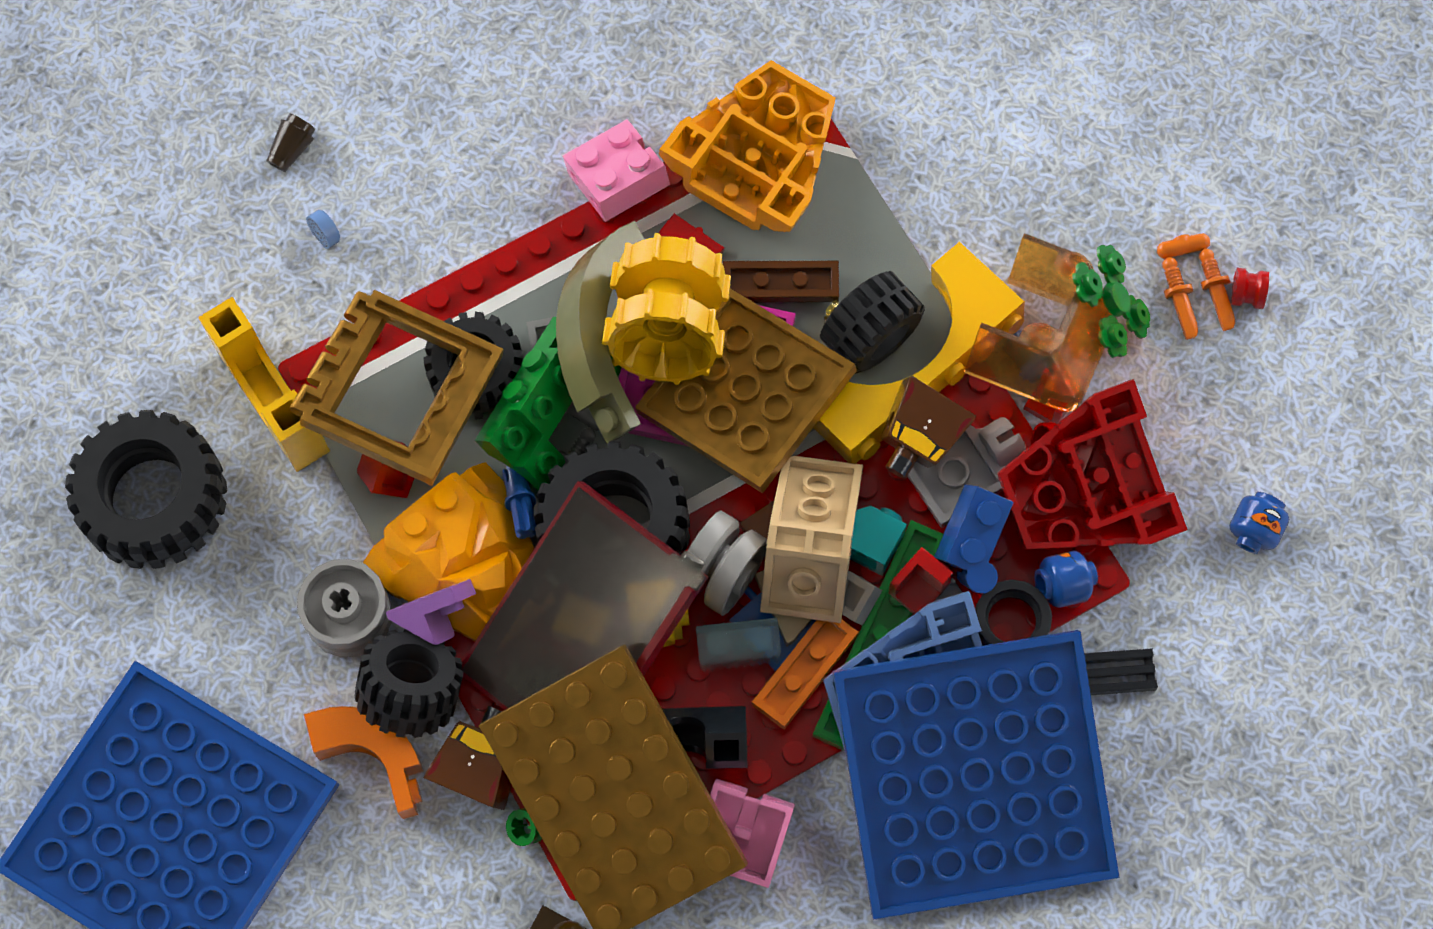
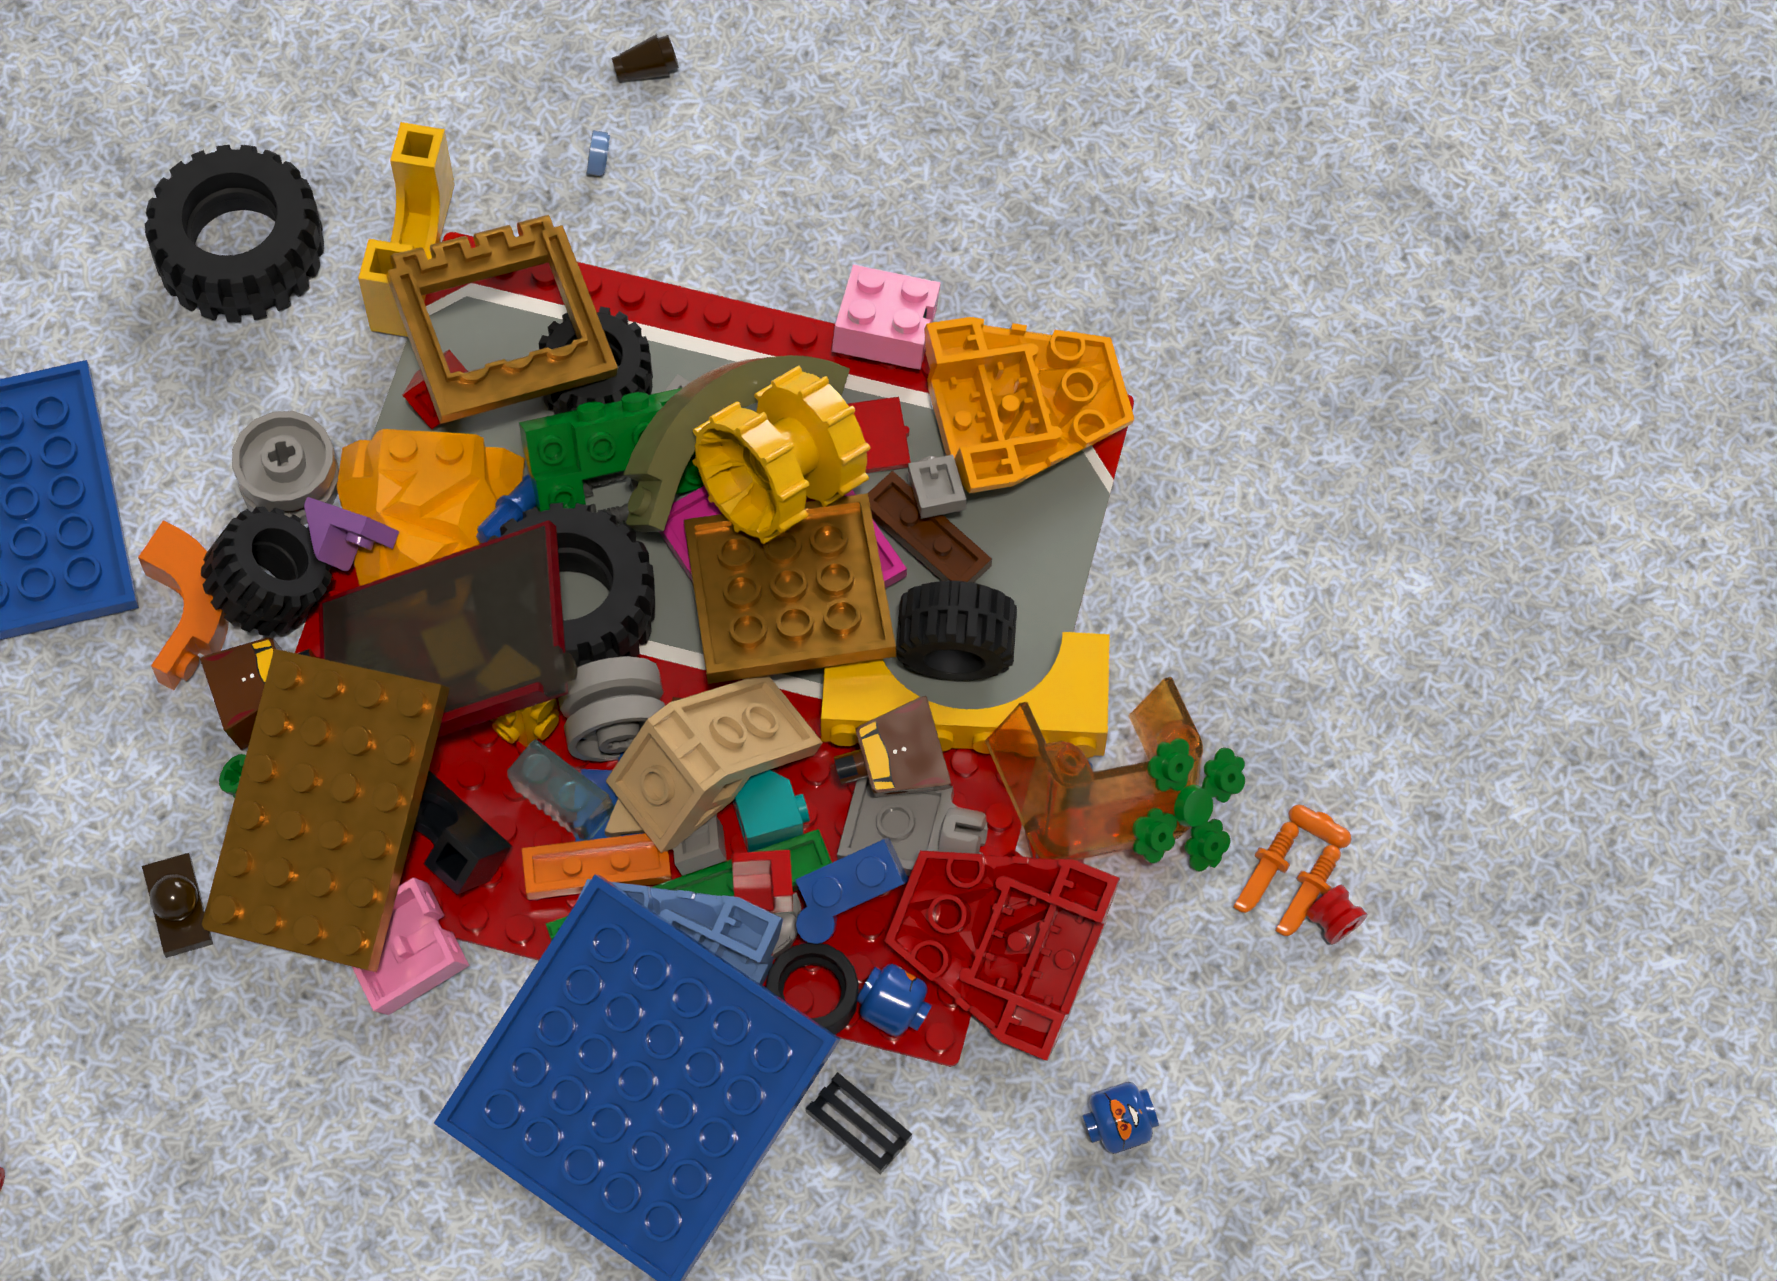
camera: 40 degrees right, 5 degrees down
(763, 245) = (936, 486): none -> light grey bracket

